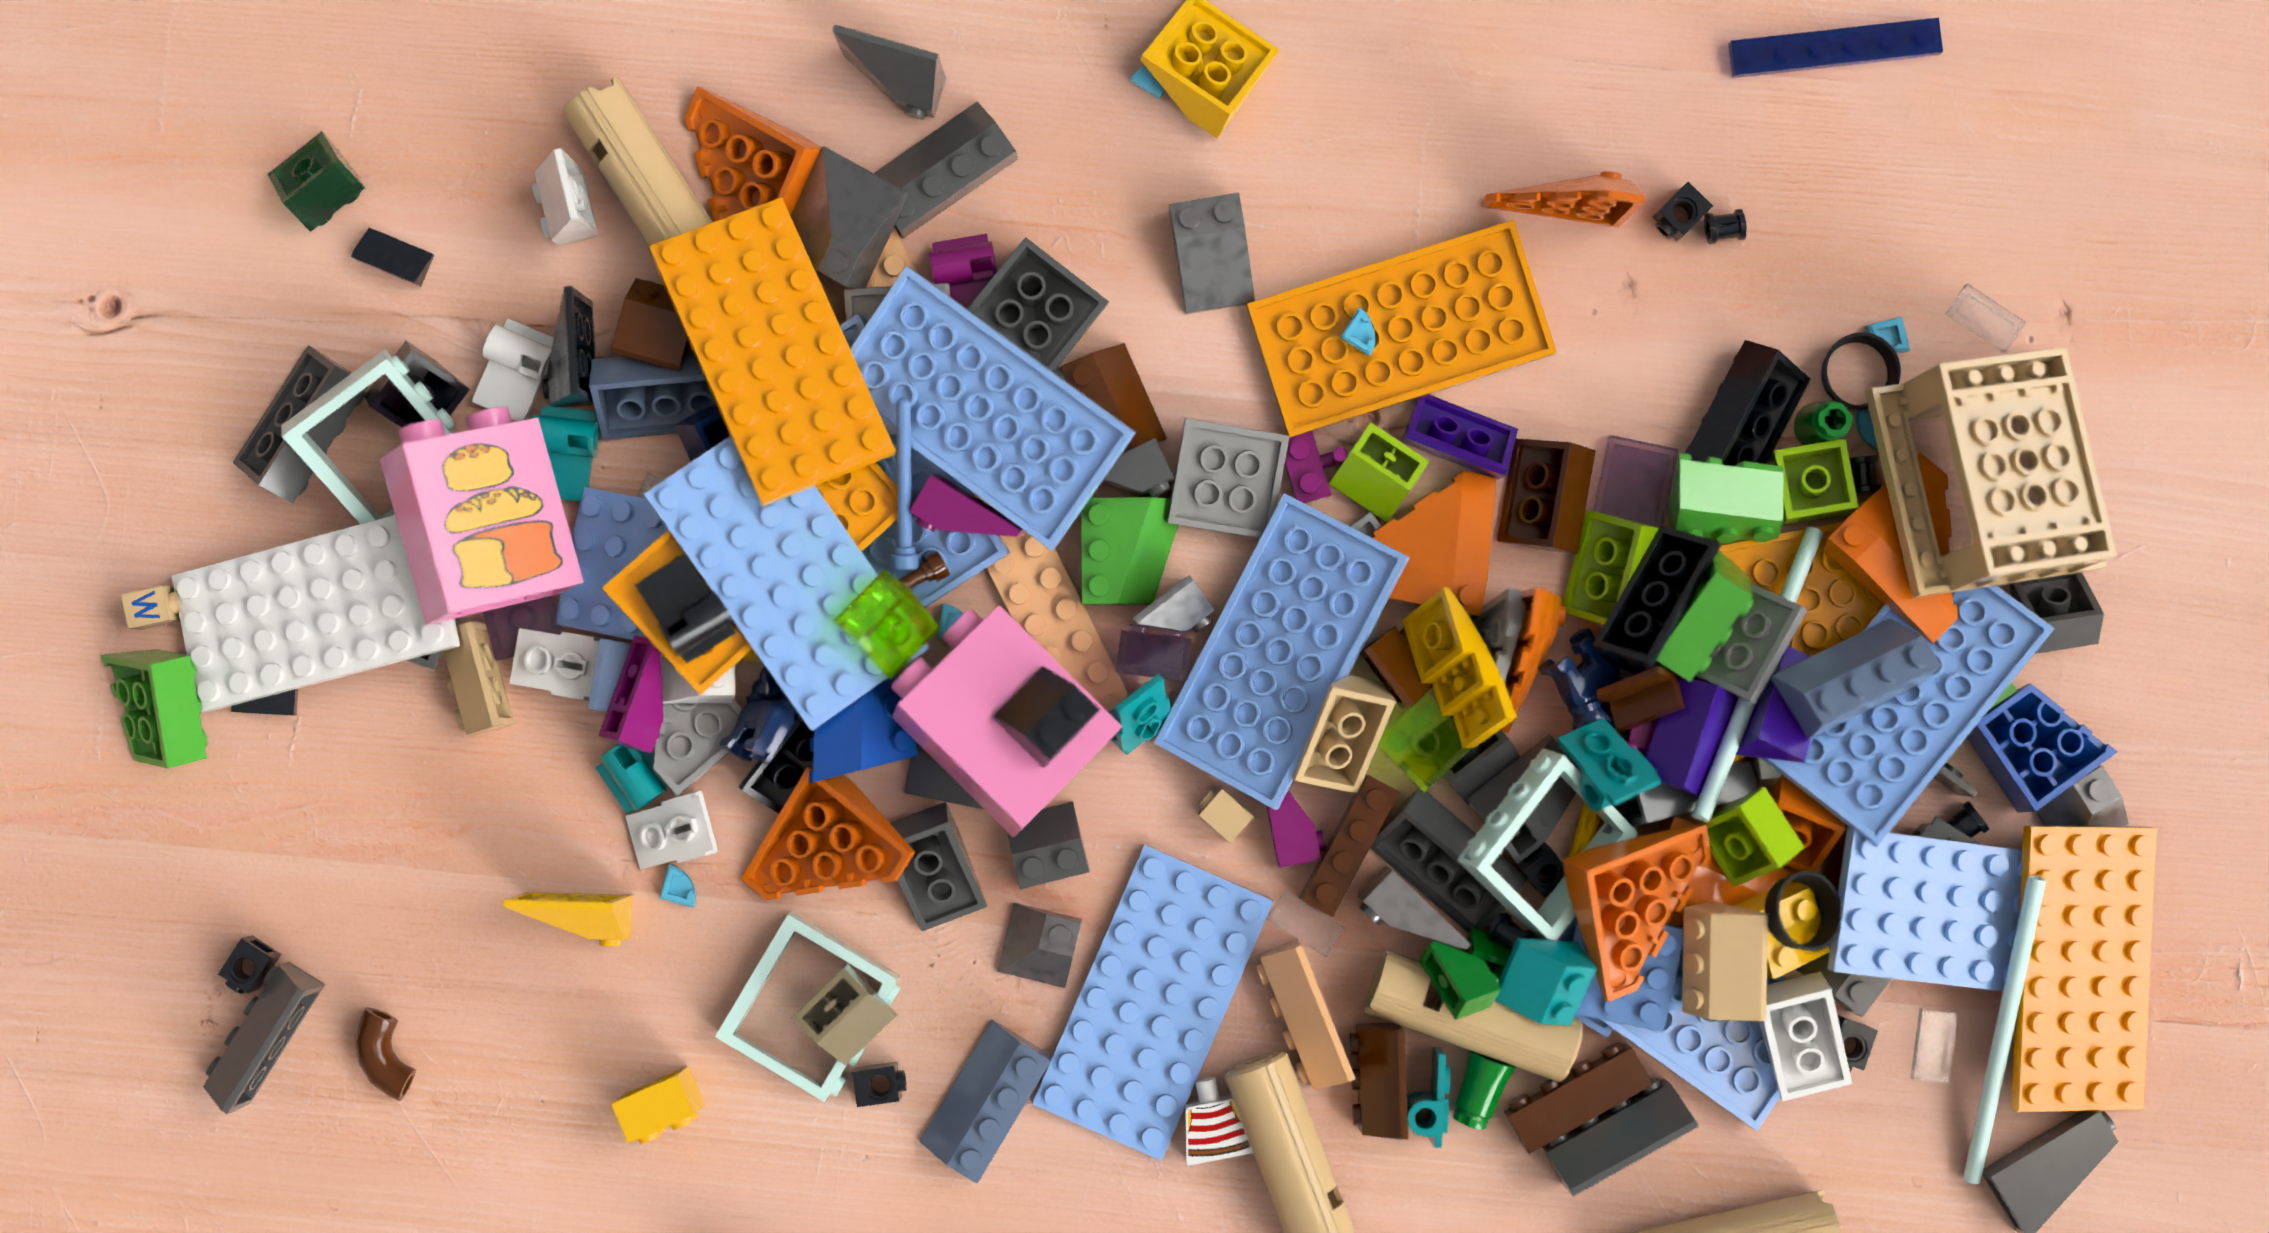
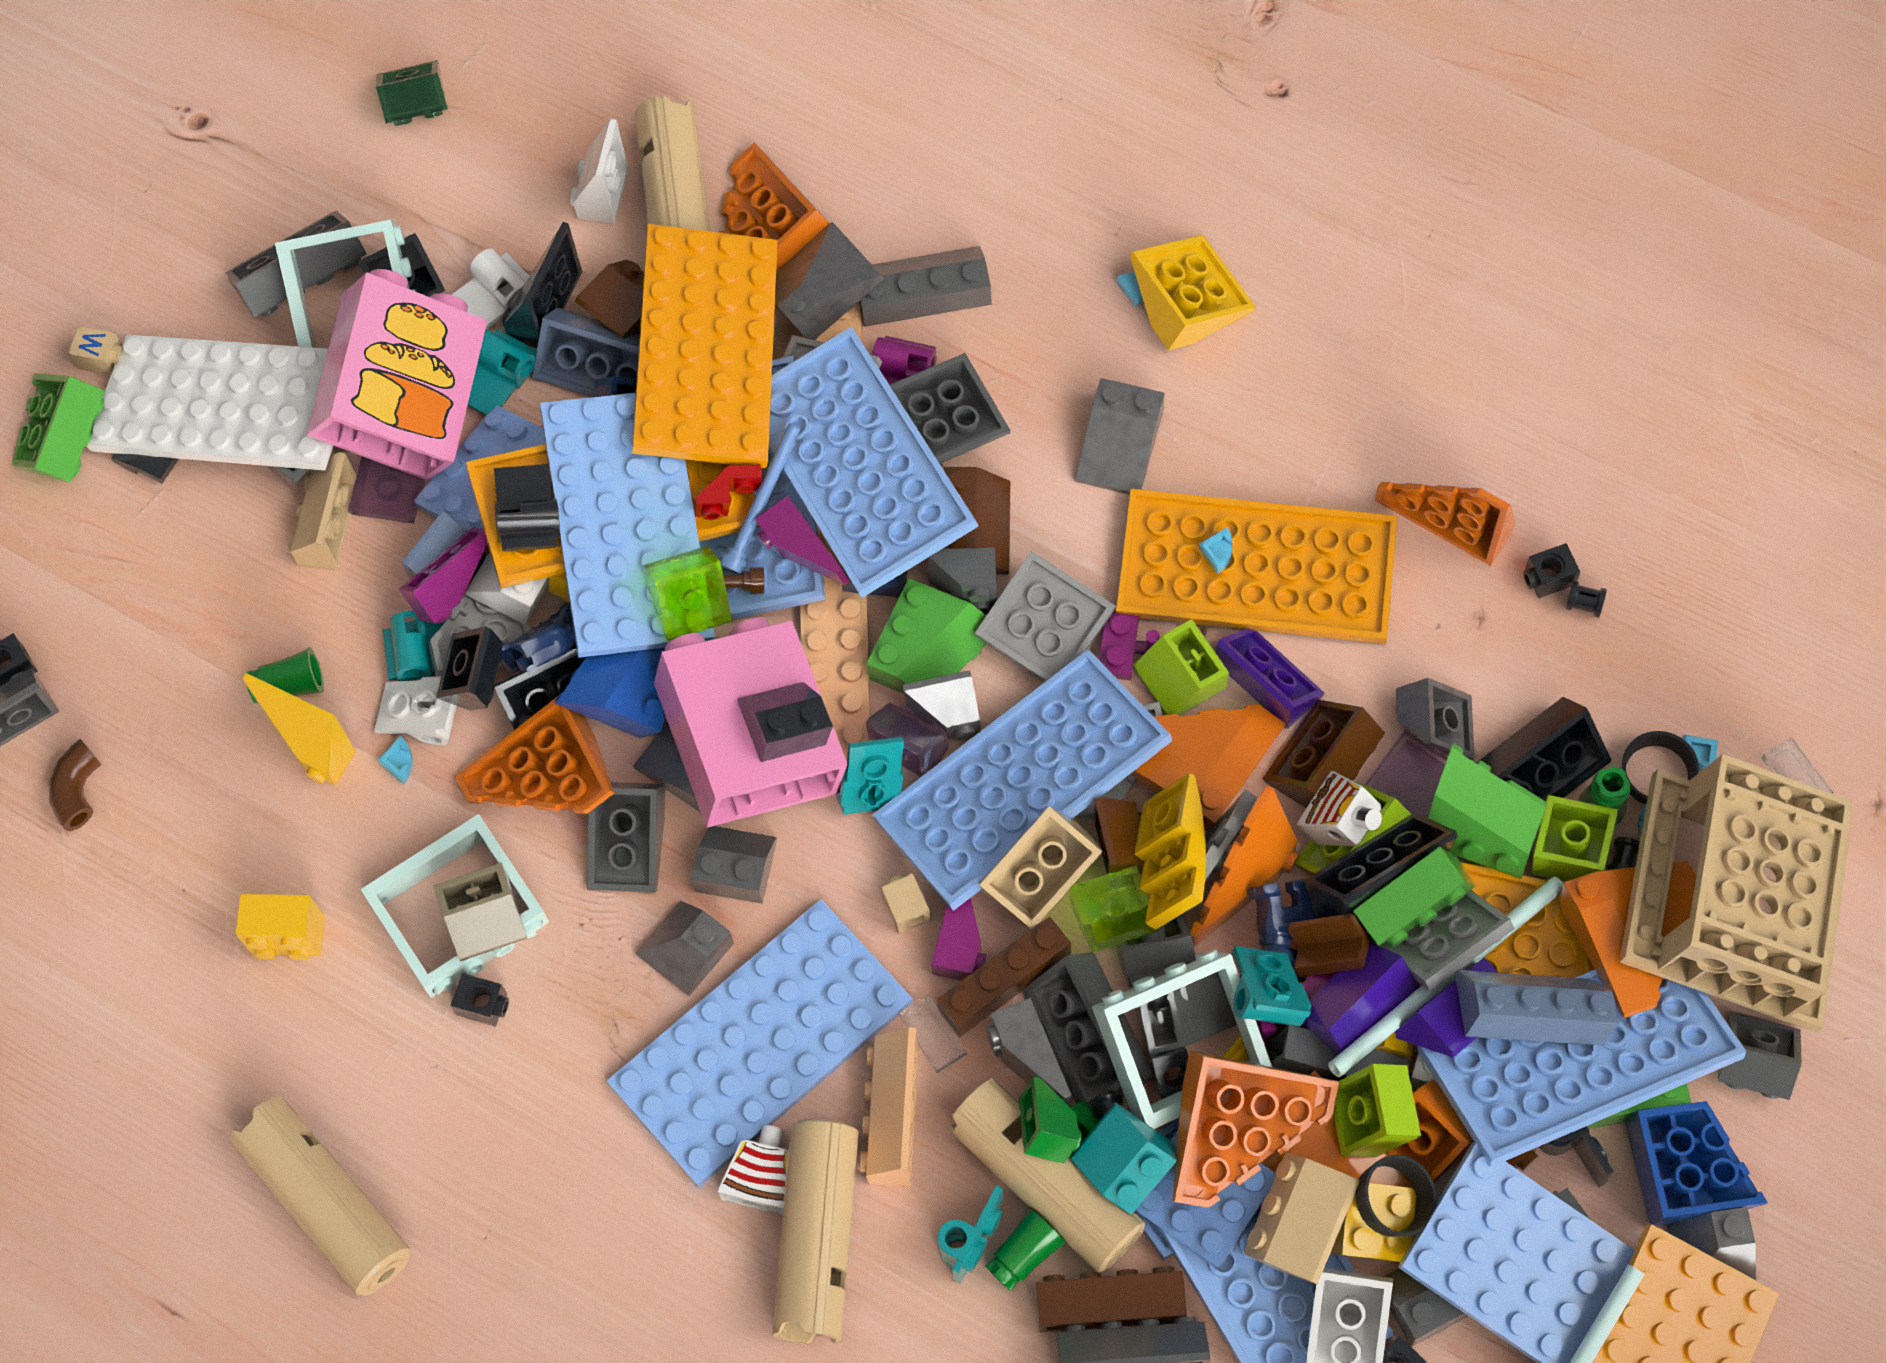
camera: 30 degrees right, 20 degrees down
(393, 256) = (440, 172): black slope -> none
(529, 859) = (295, 674): none -> green plant
(555, 662) = (391, 527): white piece -> none
(710, 786) = (471, 668): none -> black slope
(863, 506) = (715, 498): none -> red slope
(902, 72) = (924, 184): dark grey slope -> none
(985, 1101) = (568, 1060): sand blue slope -> none
(1380, 1080) = (932, 1196): reddish brown slope -> none
(1595, 555) = (1340, 813): none -> white torso
(1636, 413) = (1437, 715): none -> flat silver slope
(1835, 47) = (1750, 497): clear blue plate -> none
(1968, 821) = (1599, 1211): black piece -> none

